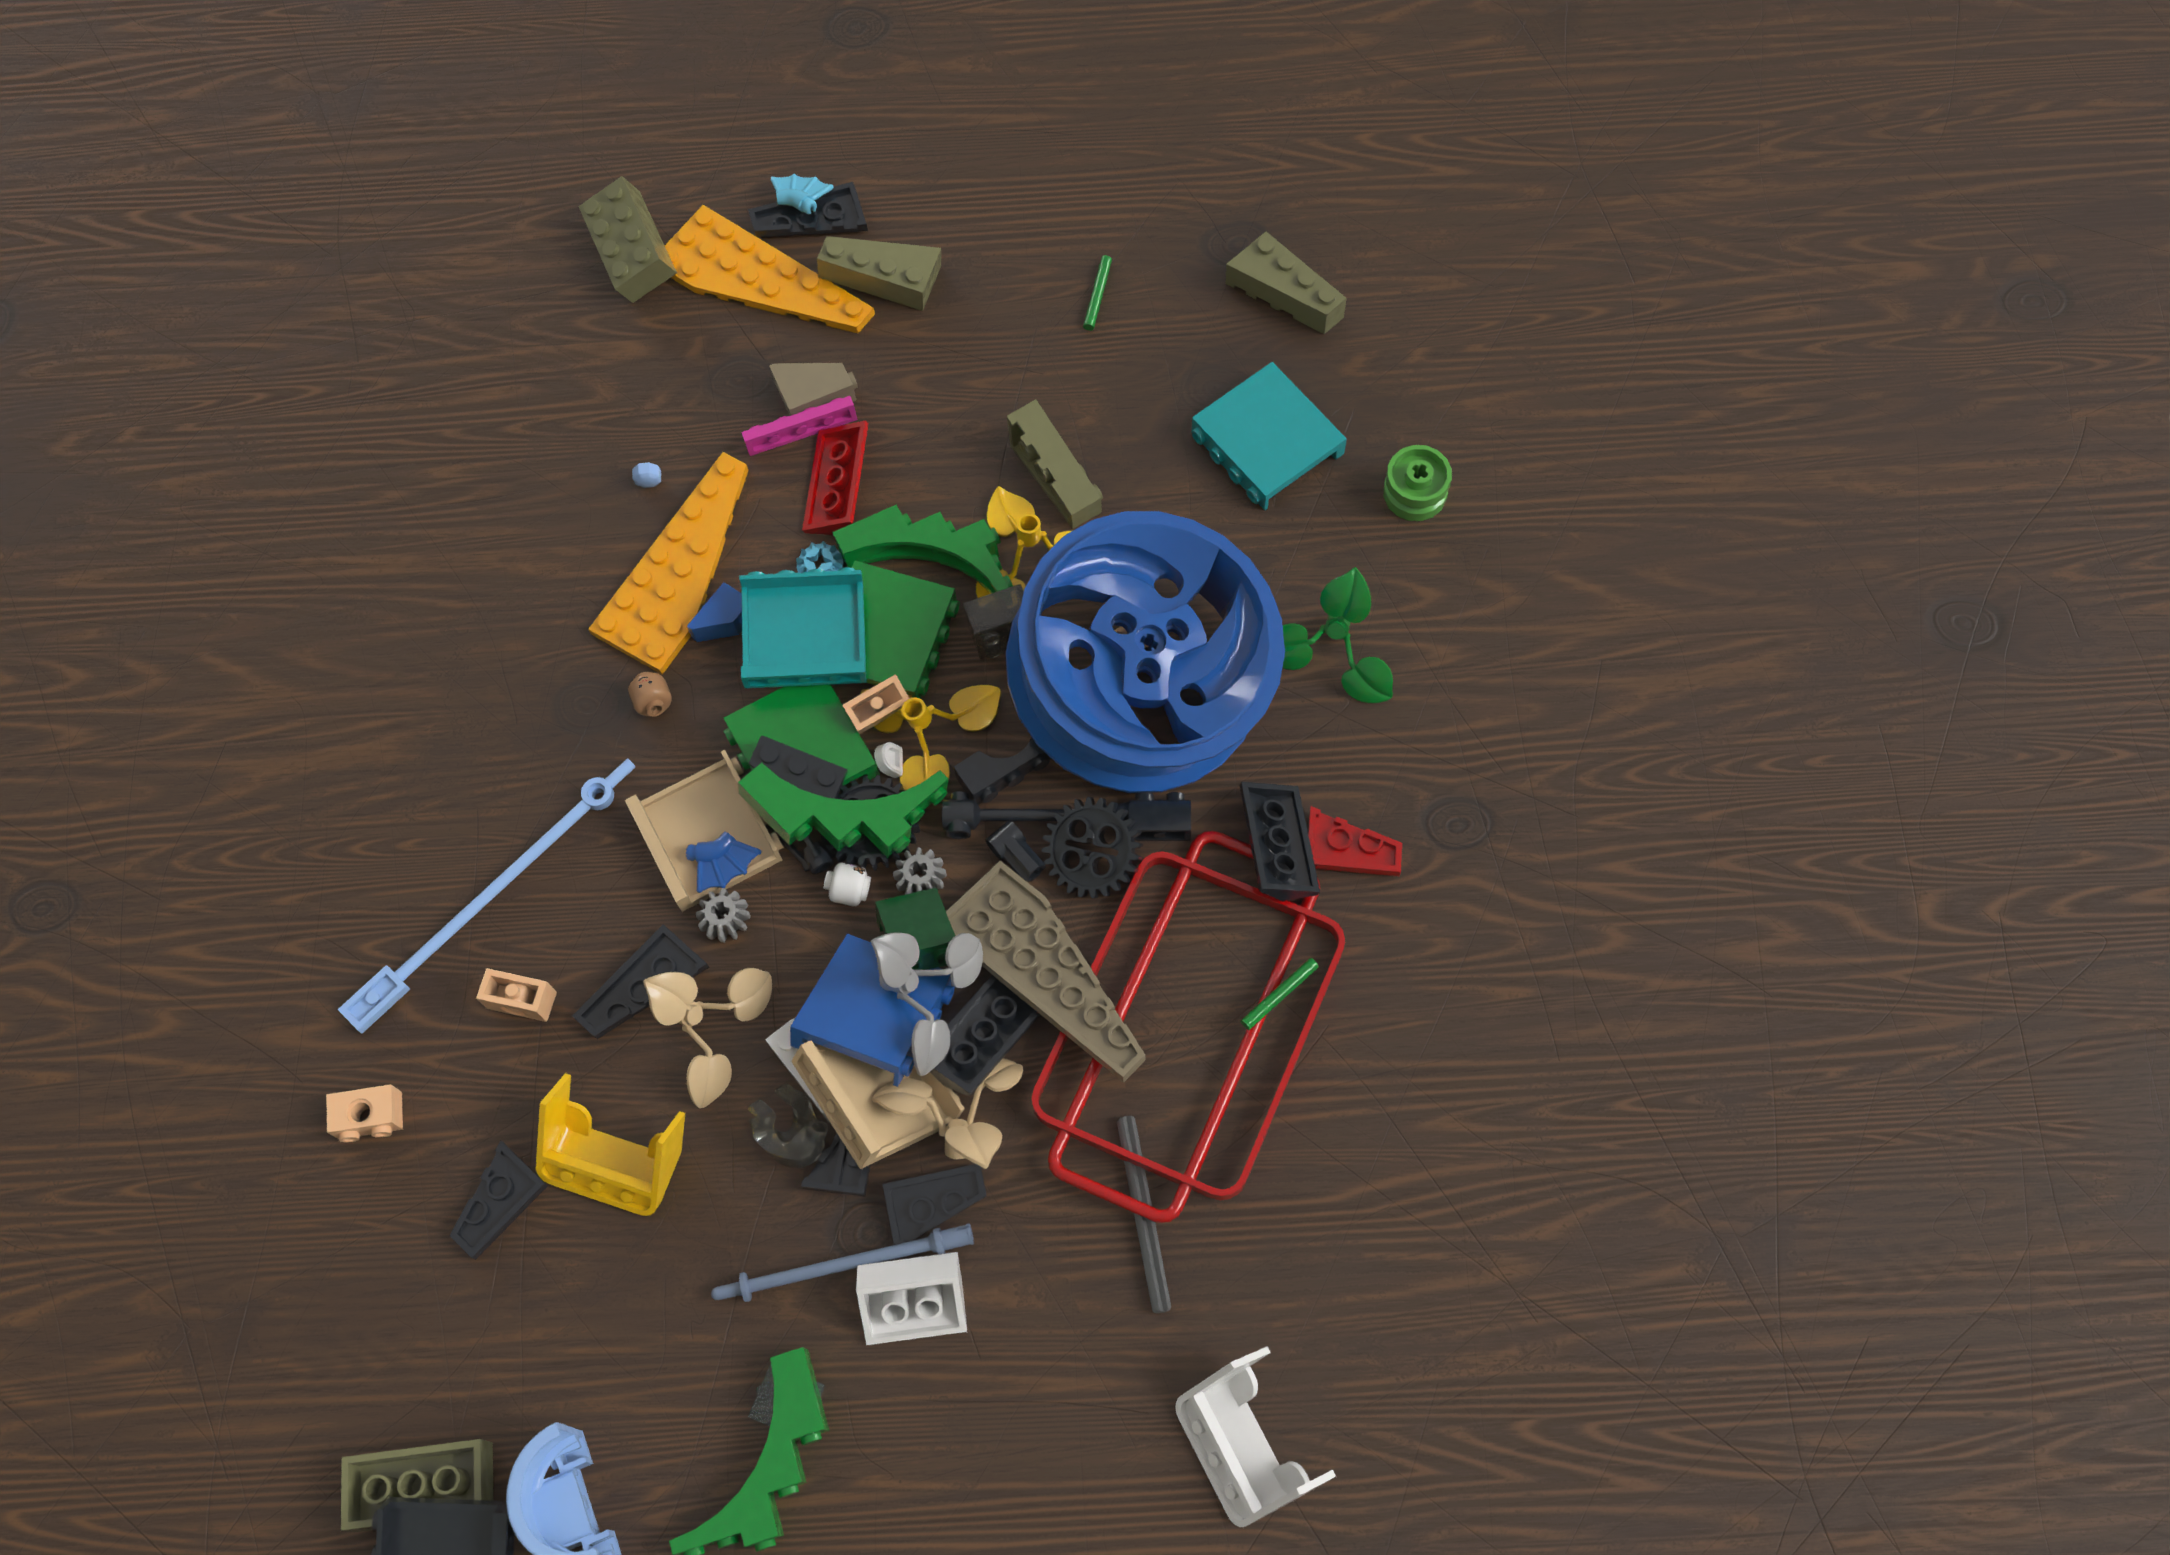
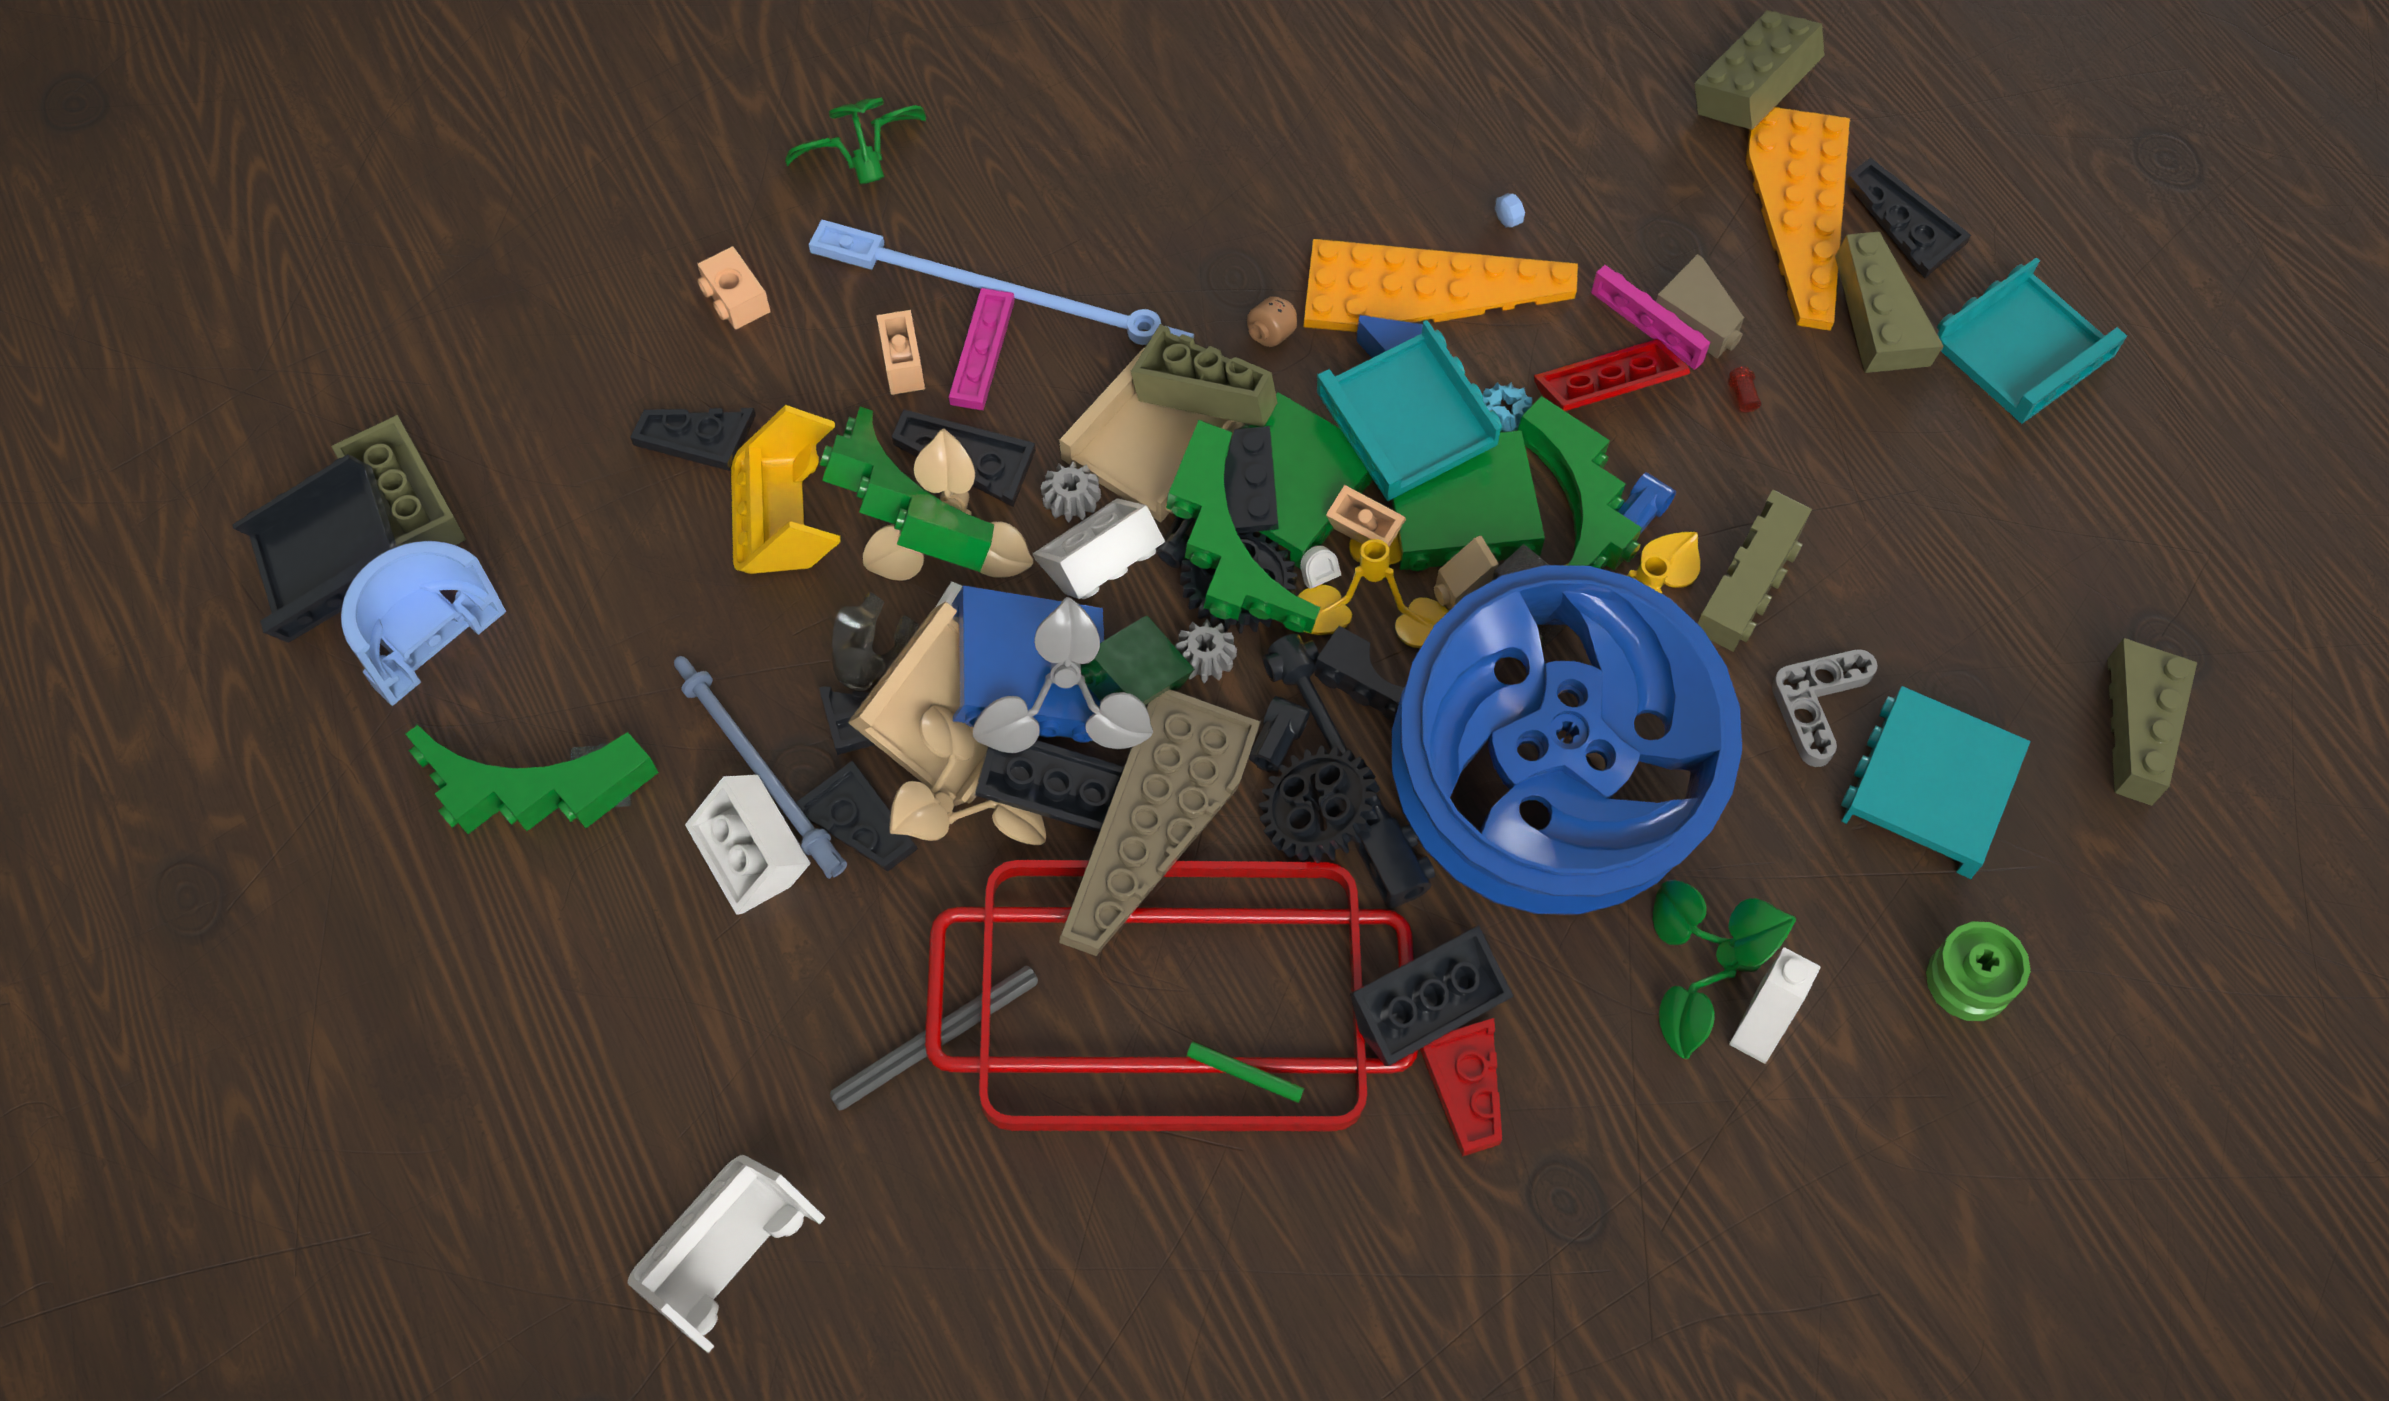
camera: 60 degrees right, 5 degrees down
(297, 946) = (865, 160): none -> green plant
(545, 929) = (981, 349): none -> dark pink plate
(663, 1056) = (889, 495): none -> green arch
(686, 767) = (1202, 381): none -> olive wedge
(720, 860) = (1127, 462): blue arm -> none
(785, 914) = (1100, 548): none -> white slope
(799, 191) = (1922, 190): medium azure arm -> none
(847, 884) = (1160, 589): white head -> none
(896, 394) = (1742, 382): none -> clear red pin
(955, 506) = (1647, 500): none -> blue piece
(958, 658) = (1465, 573): none -> tan slope
(959, 197) = (2024, 343): none -> teal panel
(1097, 292) = (2002, 530): green bar -> none
(1162, 484) = (1806, 698): none -> light grey beam
(1390, 619) = (1774, 1004): none -> white slope

